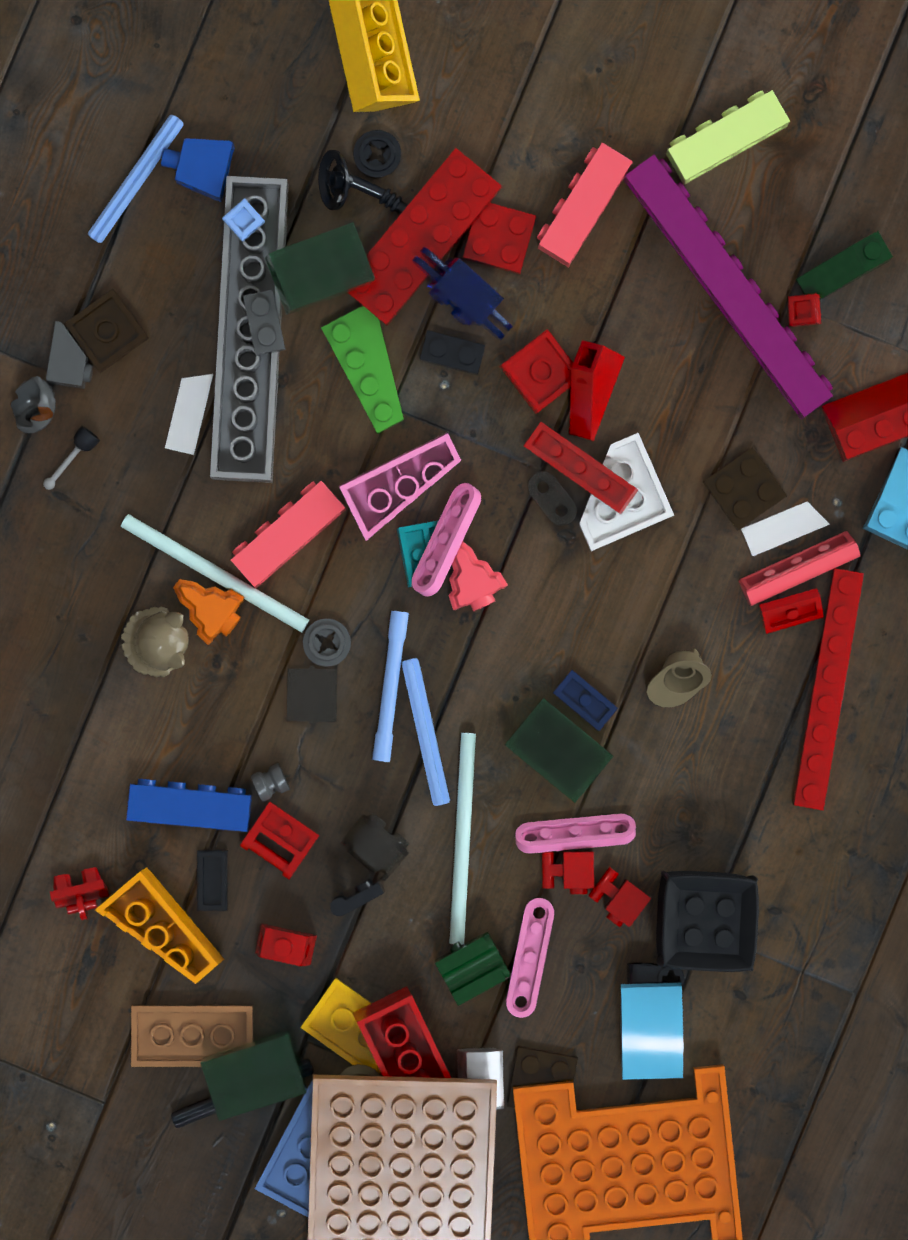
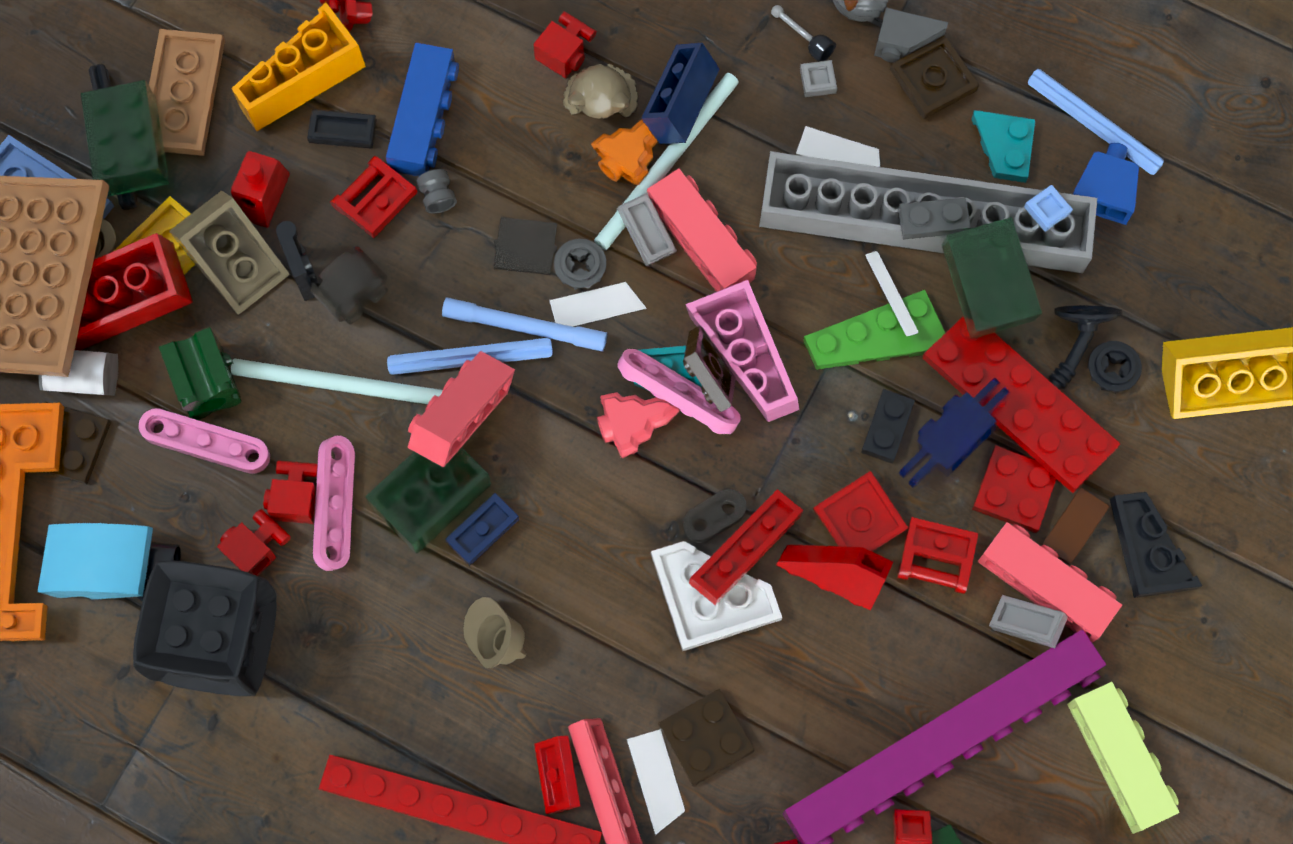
camera: 95 degrees right, 15 degrees down
(112, 684) = (561, 47): none -> red brick
(116, 439) = (818, 78): none -> light grey tile
(154, 565) = (680, 93): none -> dark blue brick
(166, 259) = (1006, 143): none -> teal wing
(288, 584) = (646, 229): none -> light grey tile
(329, 357) = (891, 293): none -> white sticker
(352, 962) = (229, 251): none -> dark tan slope
(363, 625) = (595, 305): none -> white sticker
(426, 513) = (708, 366): none -> dark brown plate
(487, 728) = (460, 408): none -> coral brick
(528, 183) = (1076, 525): none -> reddish brown slope
(545, 119) = (1148, 551): none -> black wing
(557, 301) = (939, 544): none -> red plate
(620, 221) = (1028, 621): none -> light grey tile

